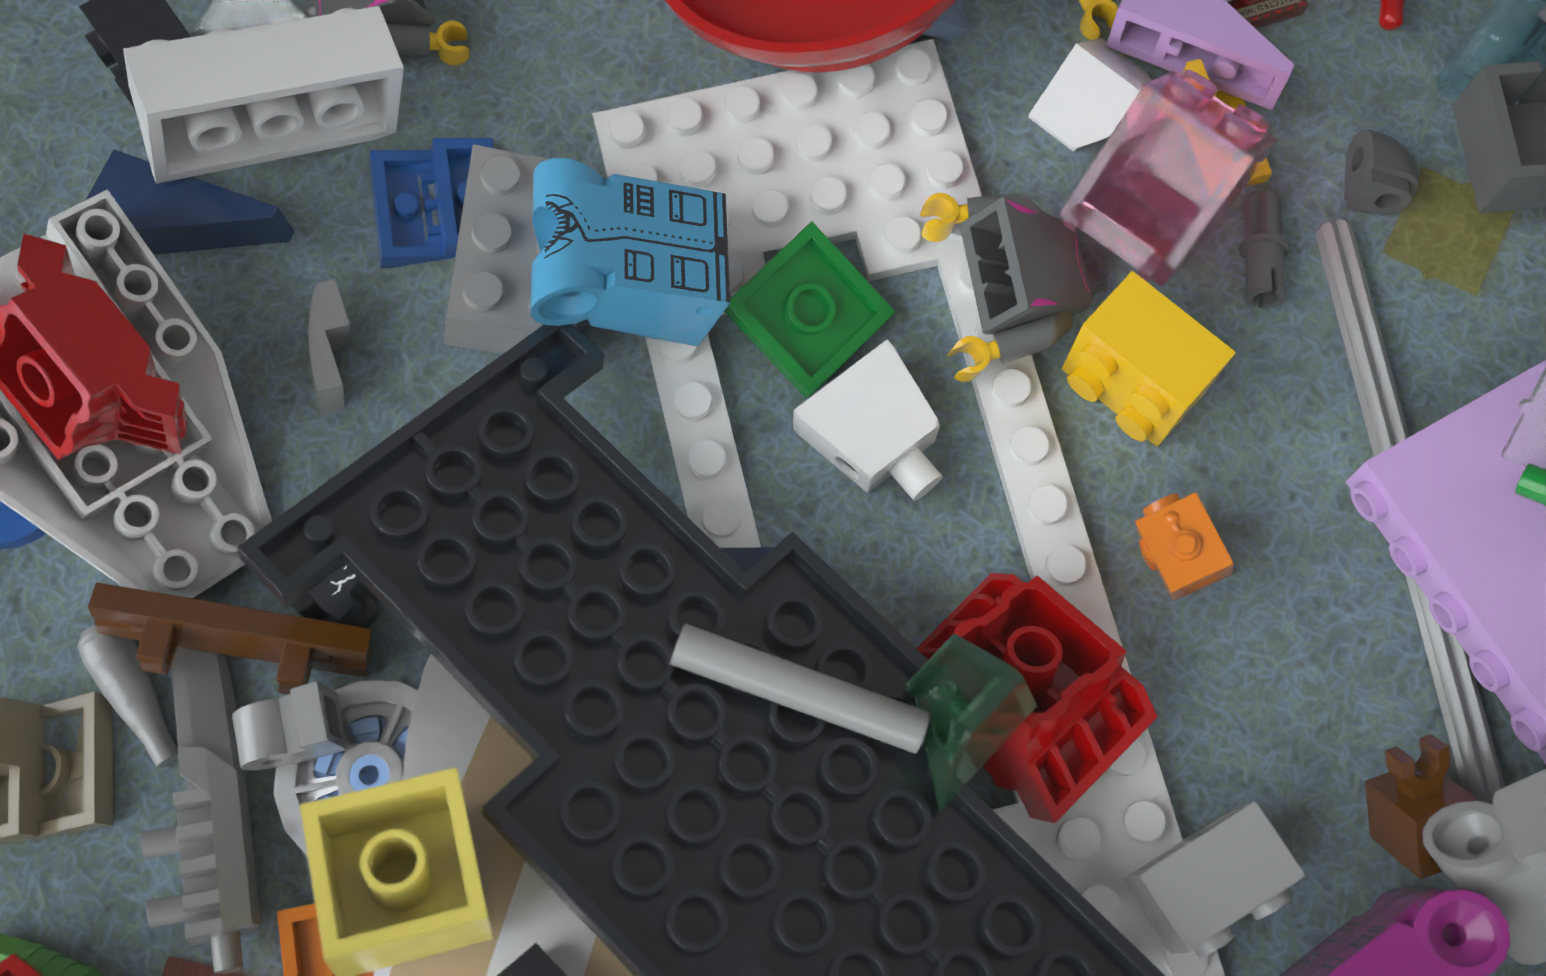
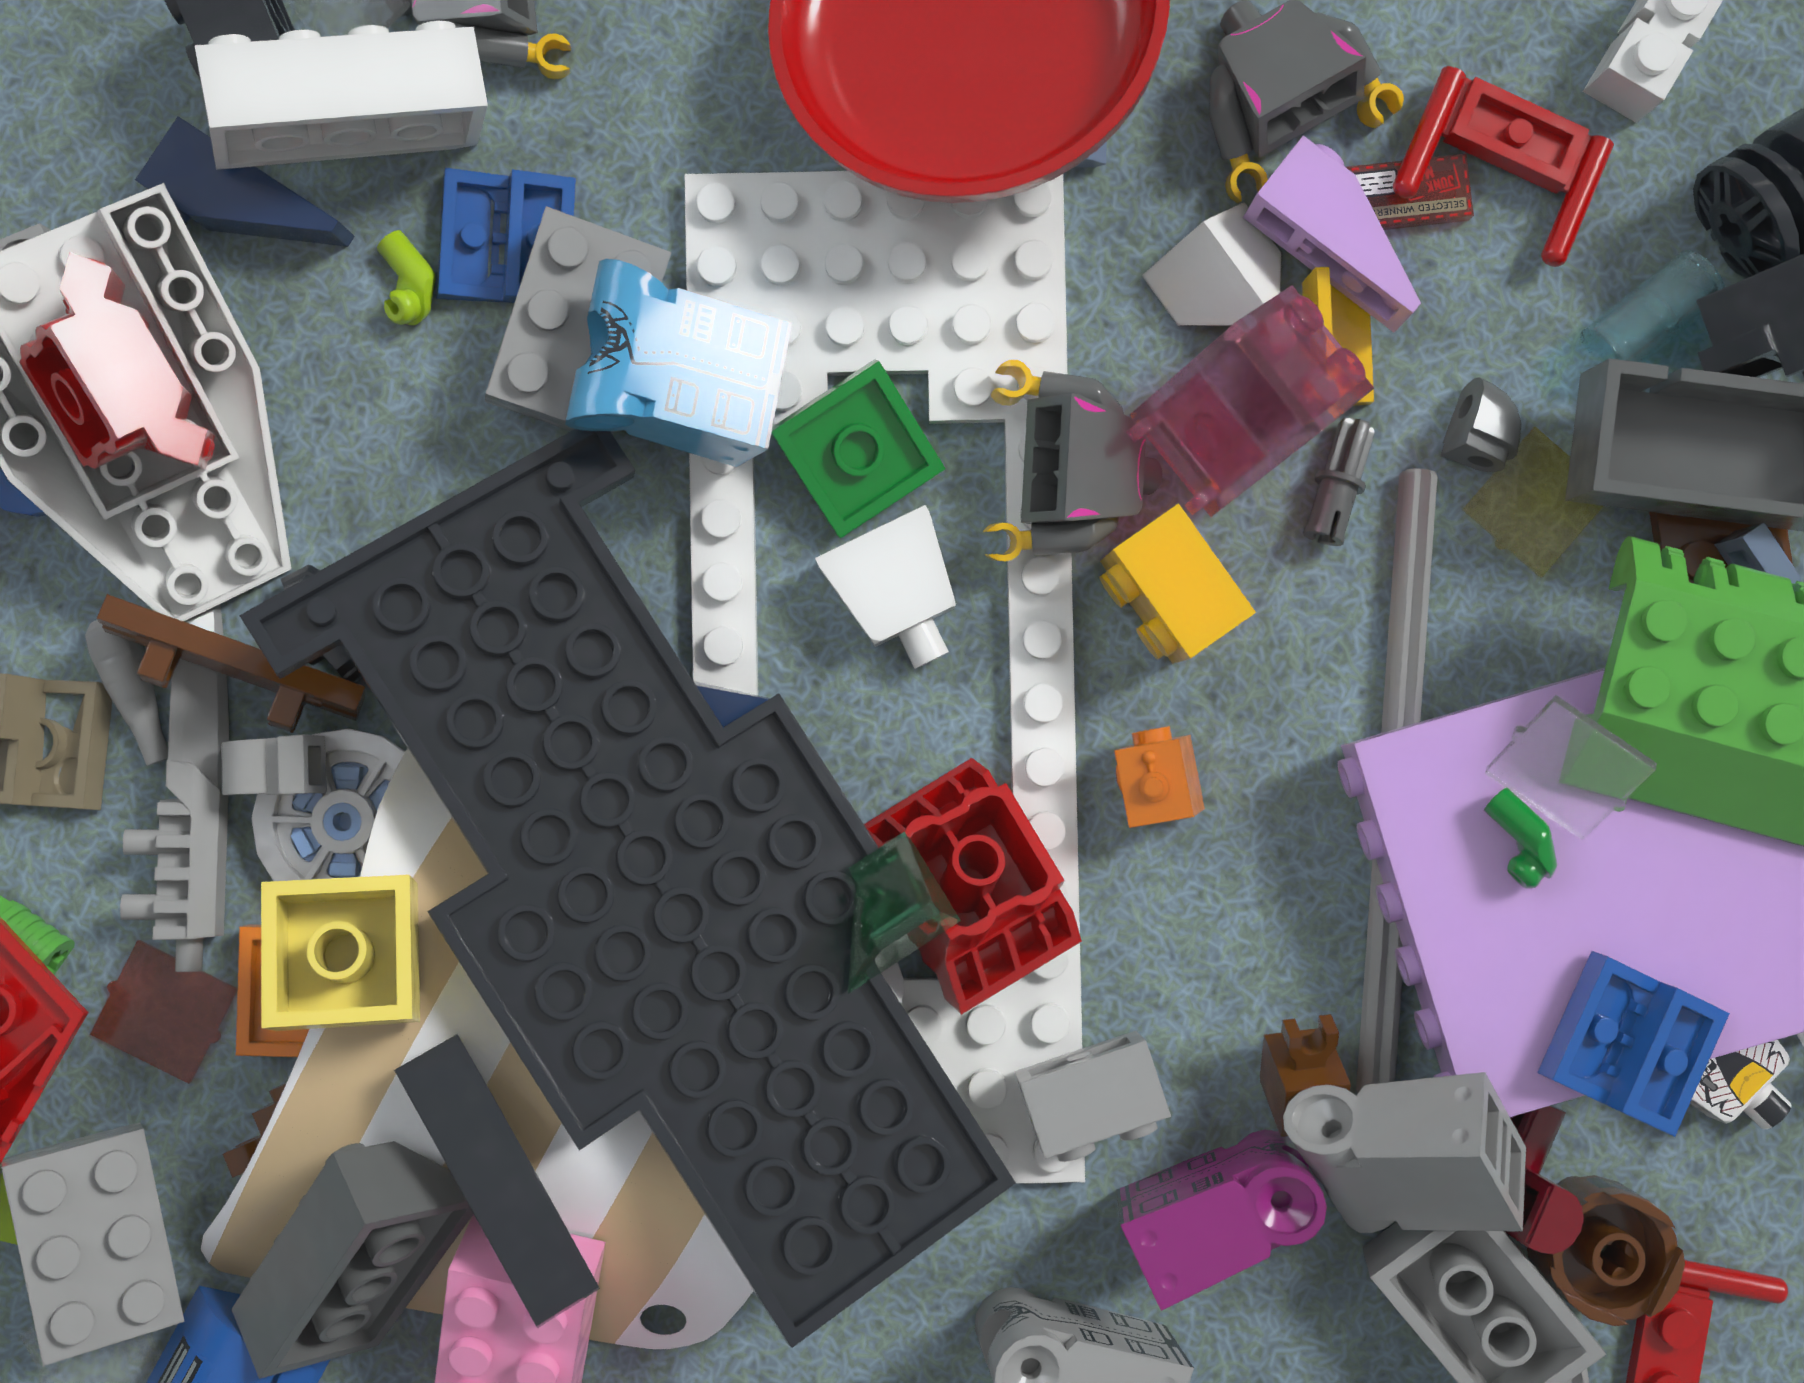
camera: 10 degrees right, 15 degrees up
(326, 333) = (368, 361): light grey slope -> none
(357, 253) = (415, 284): none -> lime arm
(800, 688) = (744, 856): light grey piece -> none

